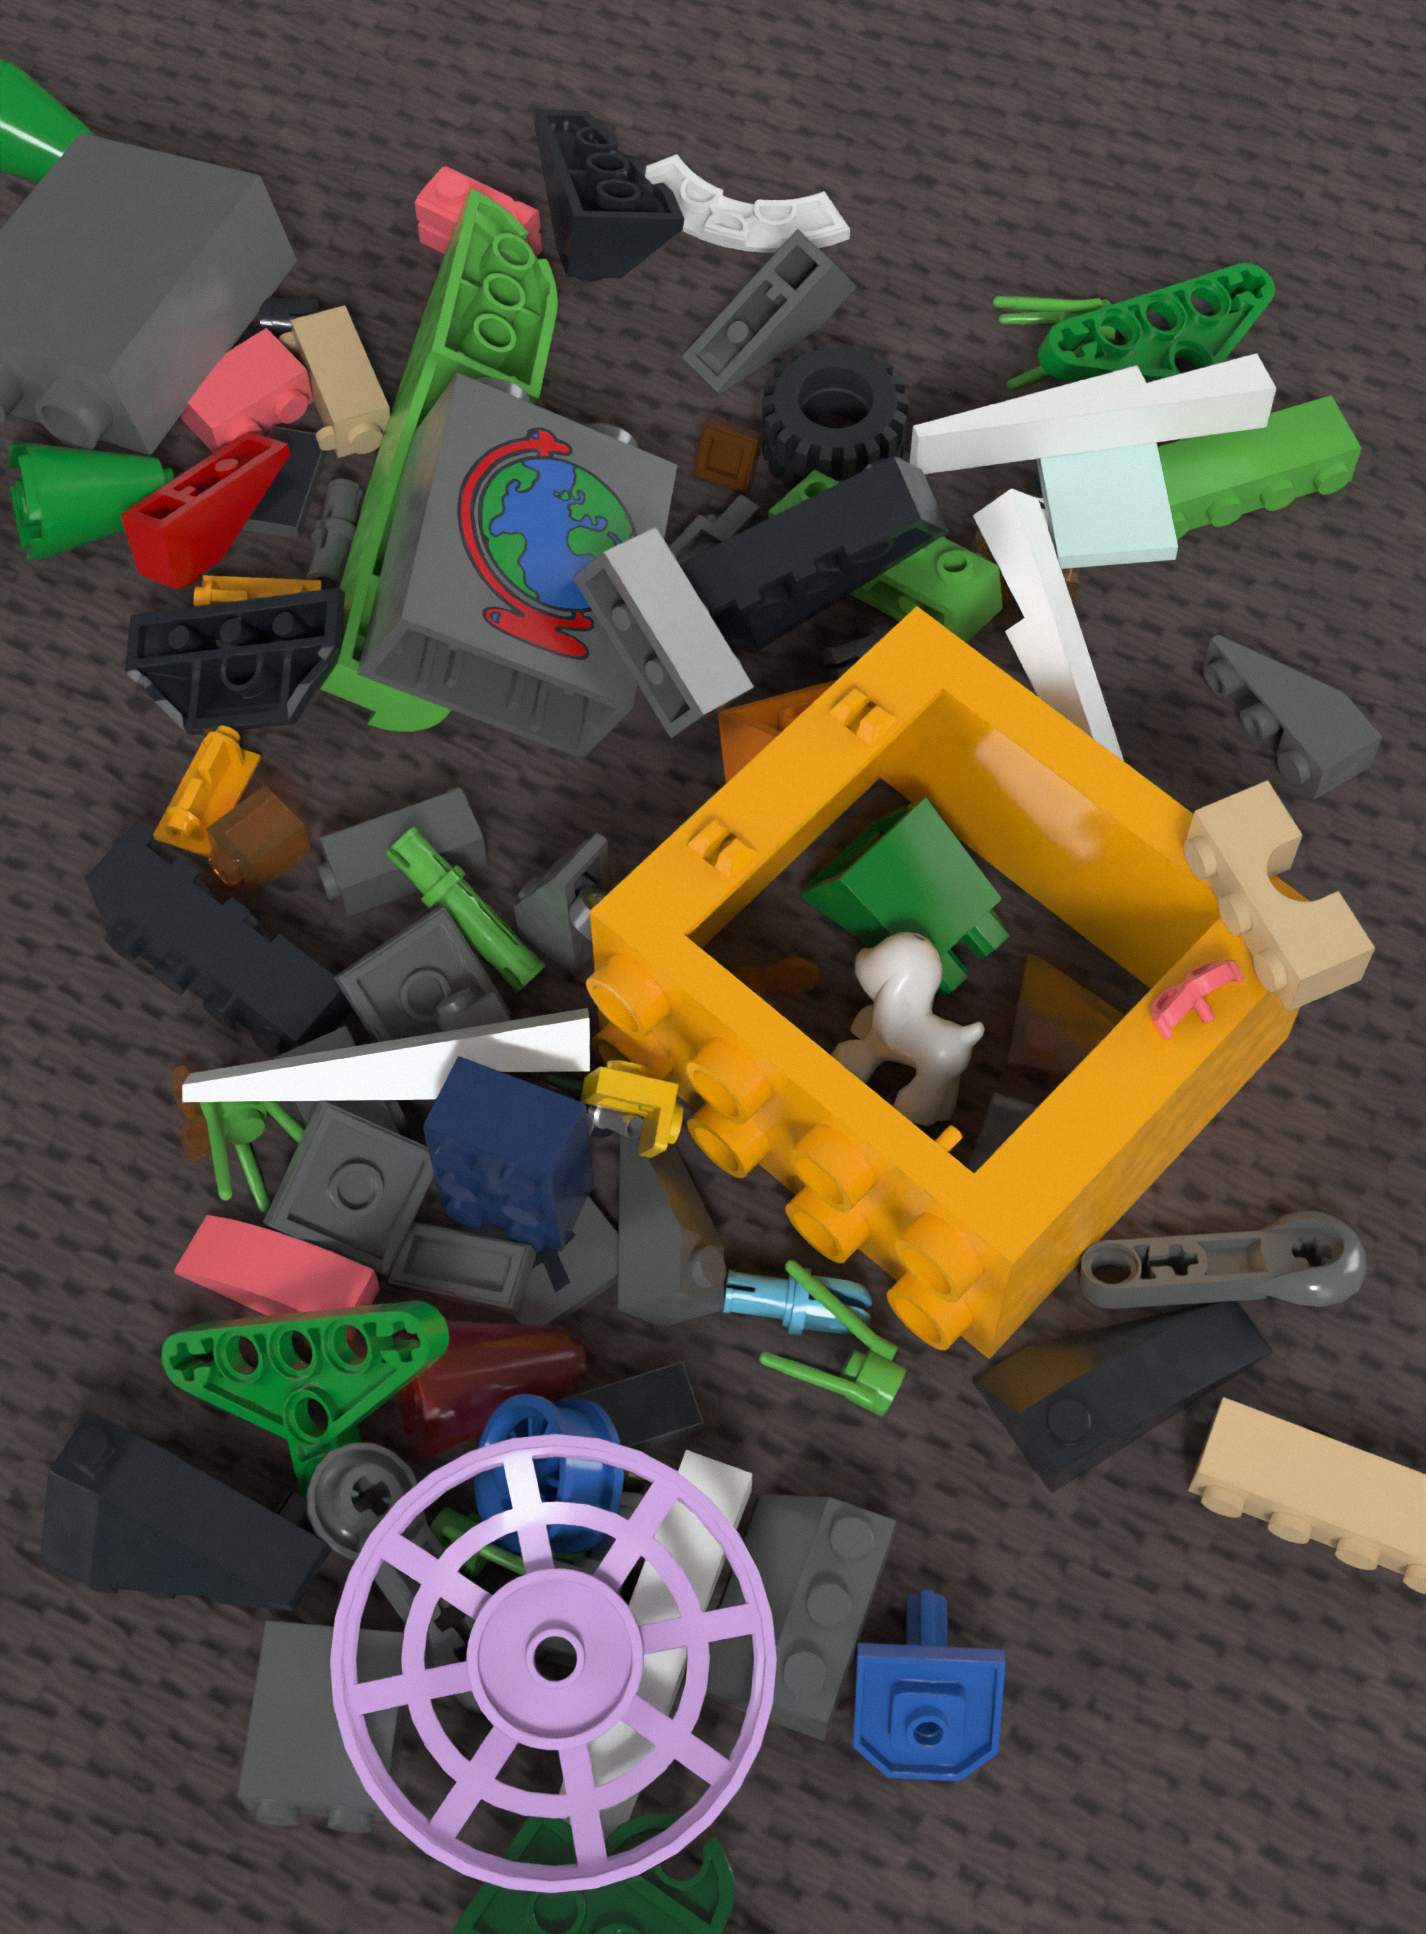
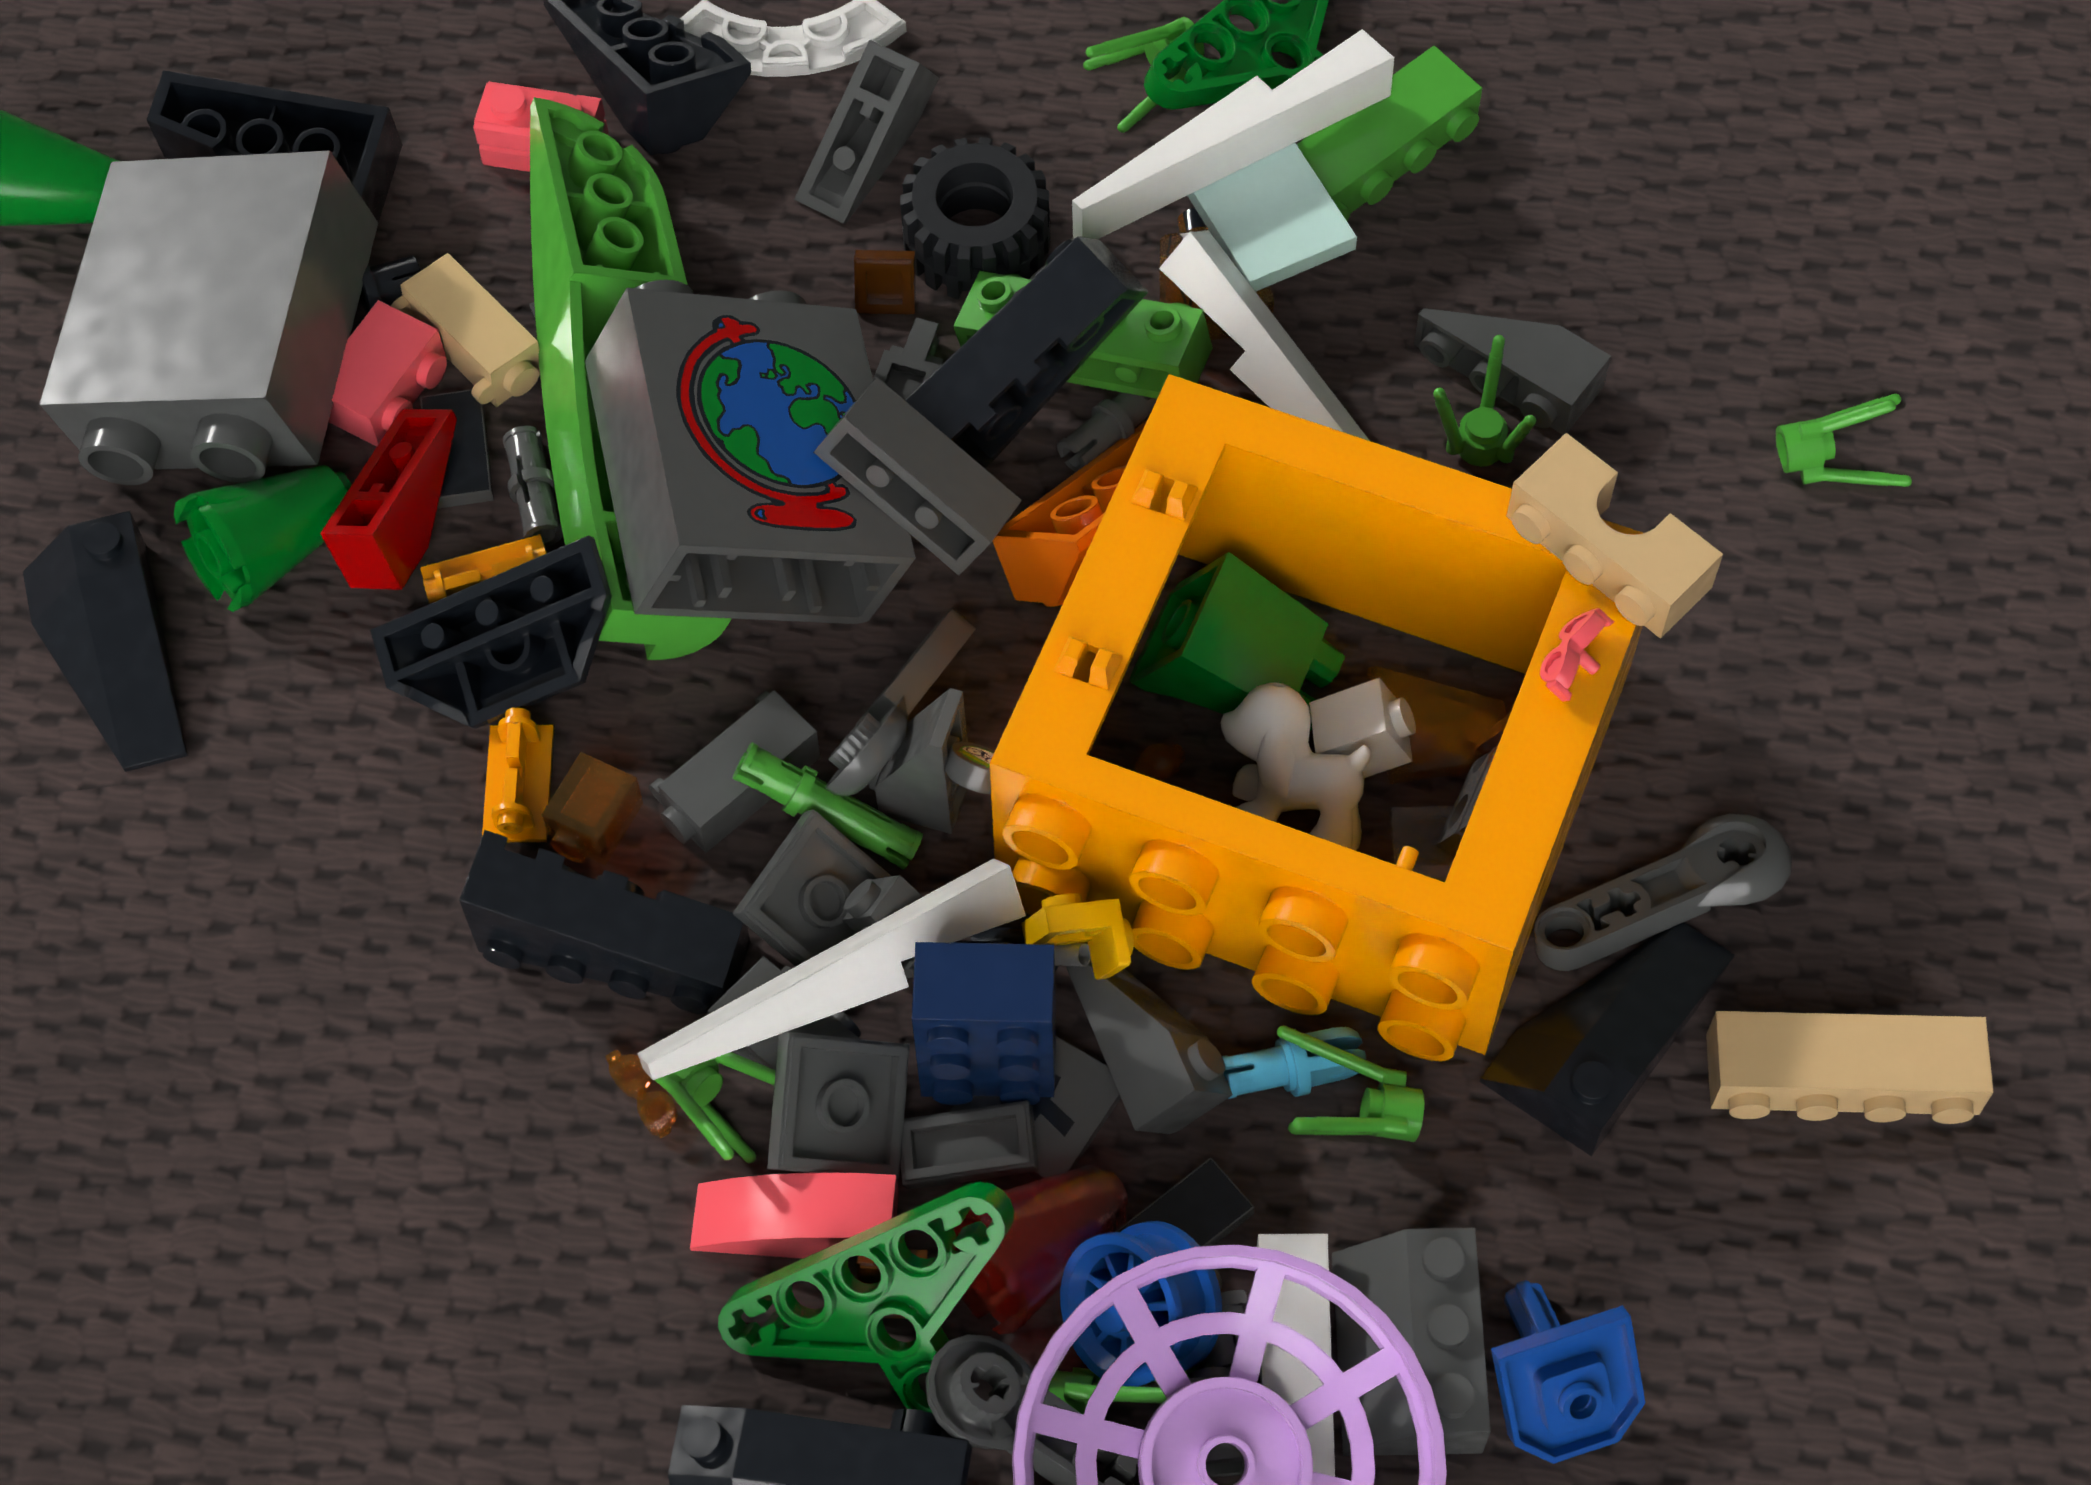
camera: 20 degrees left, 0 degrees up
(303, 181) = (230, 118): none -> black wedge
(528, 858) = (885, 722): none -> dark grey beam
(999, 999) = (1367, 717): none -> white brick
(1231, 766) = (1483, 431): none -> bright green plant

